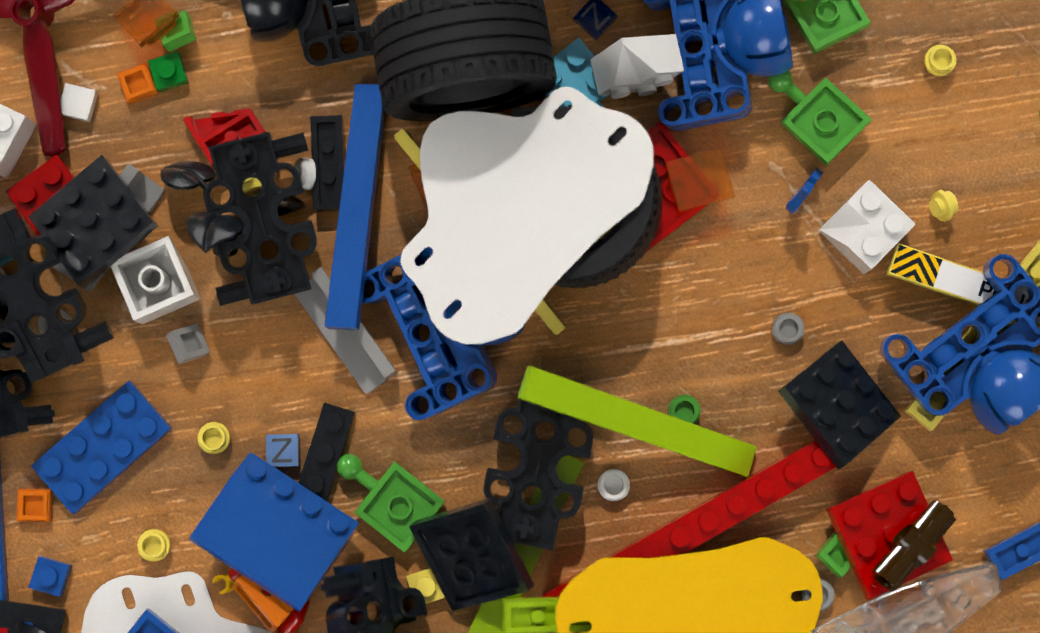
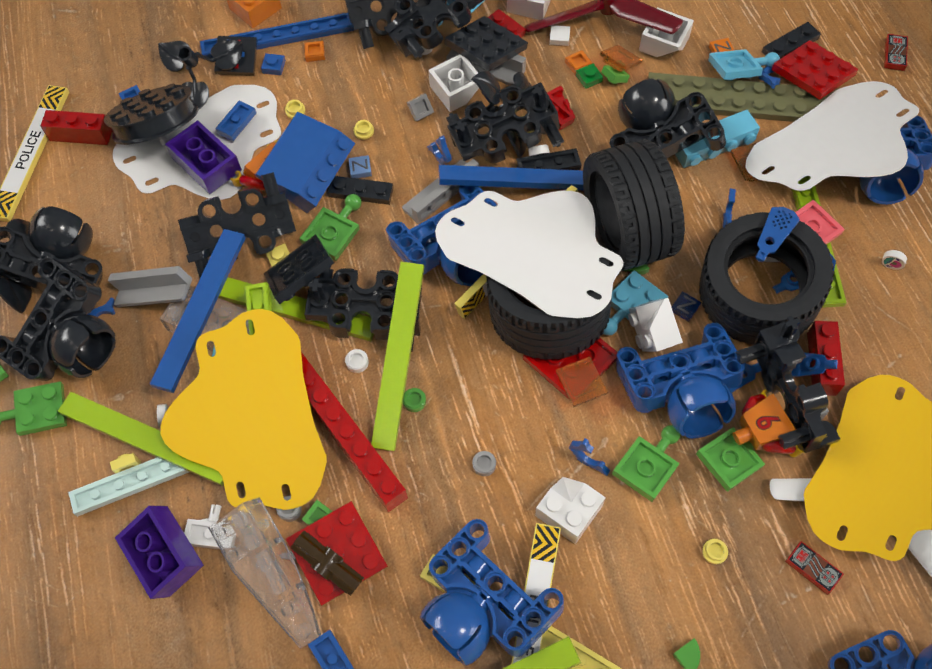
camera: 85 degrees right, 20 degrees down
(101, 447) = (352, 77): blue plate -> none
(285, 321) = (446, 157): none -> blue helmet
(839, 404) = (430, 499): black plate -> none
(943, 205) = (598, 565): light yellow plate -> none

